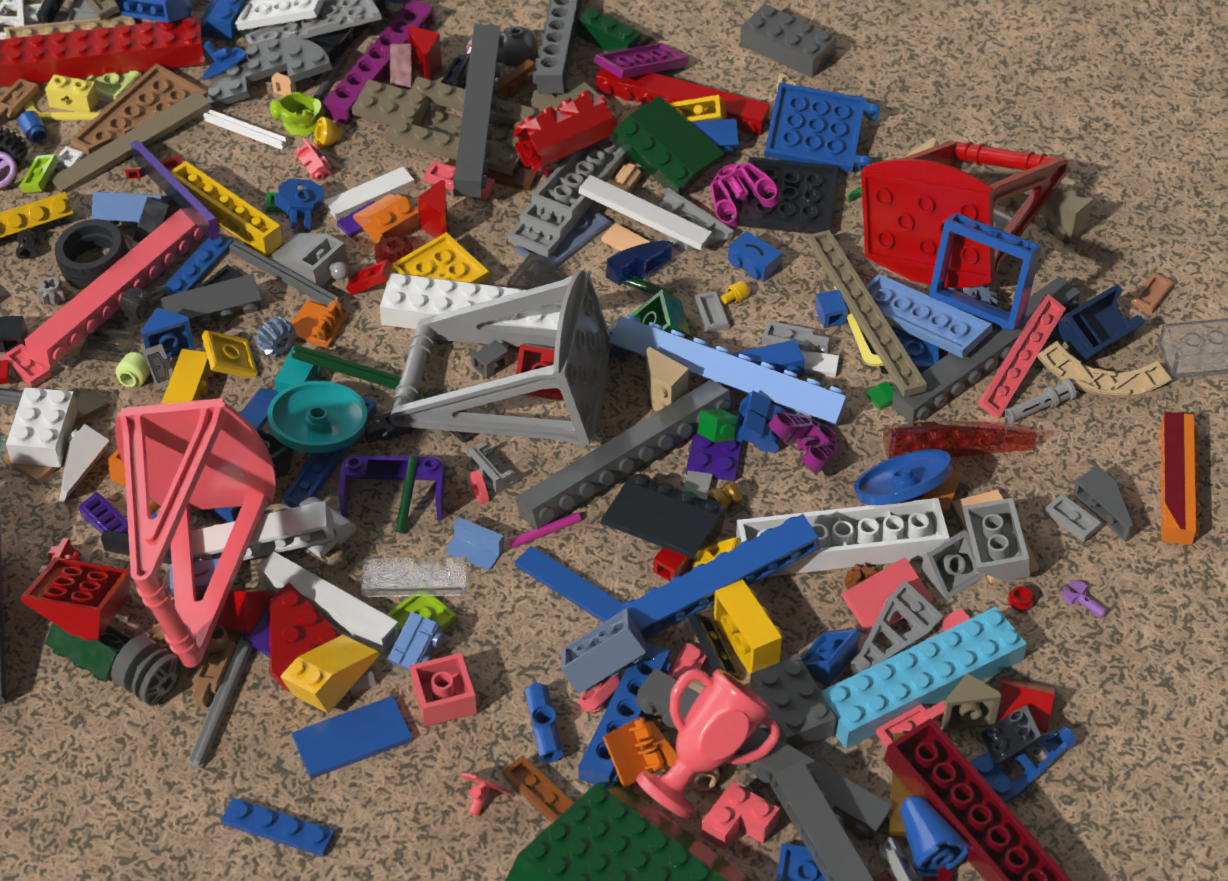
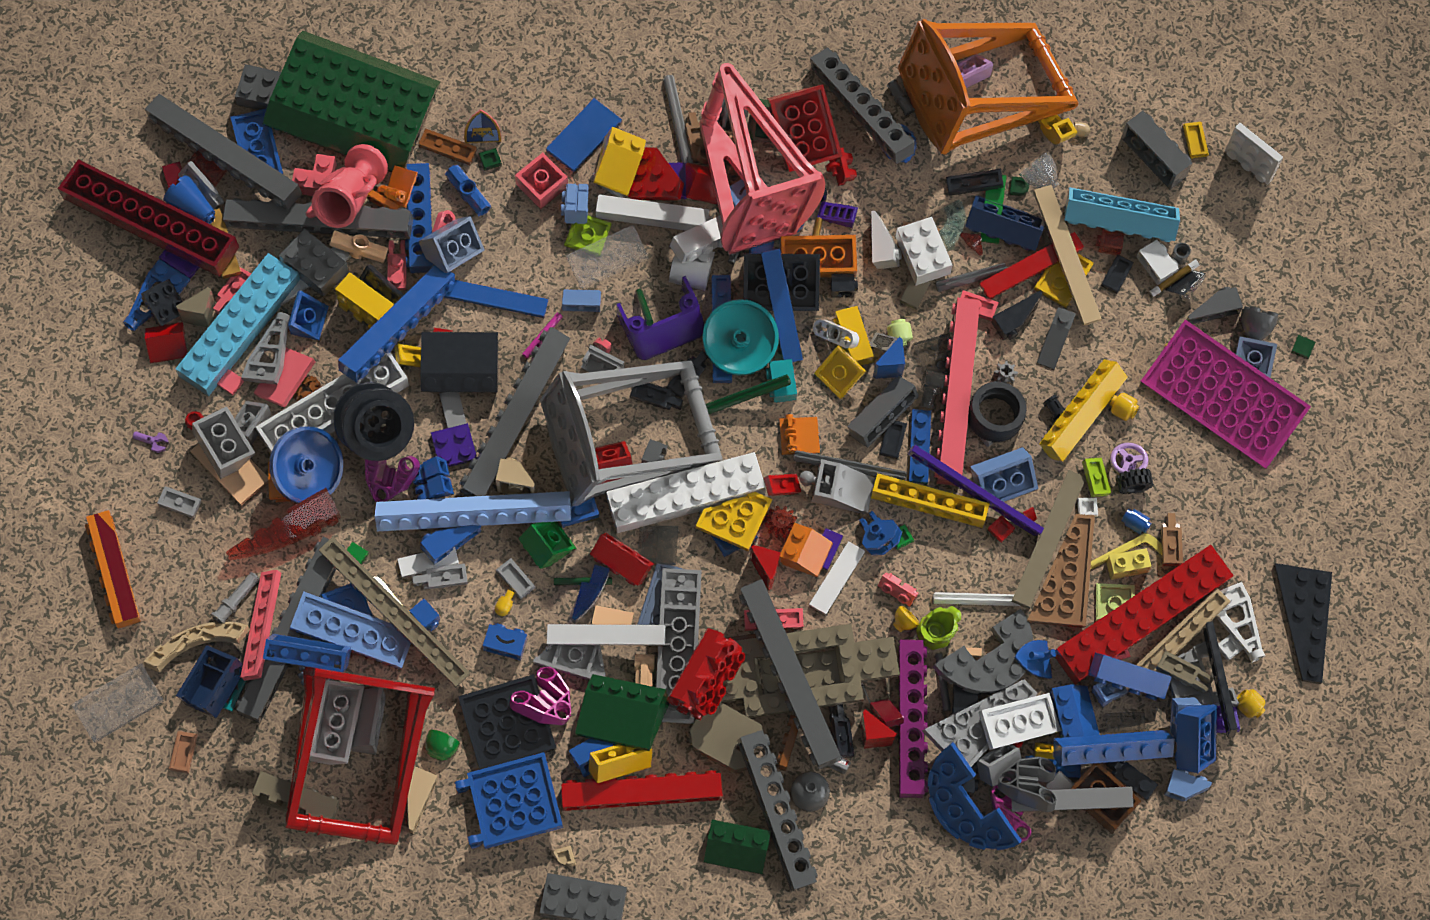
camera: 150 degrees right, 20 degrees up
(152, 217) = (974, 460): black tile -> none
(204, 366) = (842, 333): none -> white beam
(275, 336) = (816, 400): sand blue gear -> none
(278, 827) = (594, 60): blue plate -> none
(491, 757) = (490, 159): none -> dark green tile
(578, 258) = (621, 559): none -> red brick
(641, 60) = (693, 810): magenta tile -> none
(717, 425) = (458, 457): green brick -> none
(727, 495) = (430, 410): pearl gold wheel -> none
(803, 474) = (354, 409): none -> black wheel
(1103, 498) = (164, 527): dark grey slope -> none

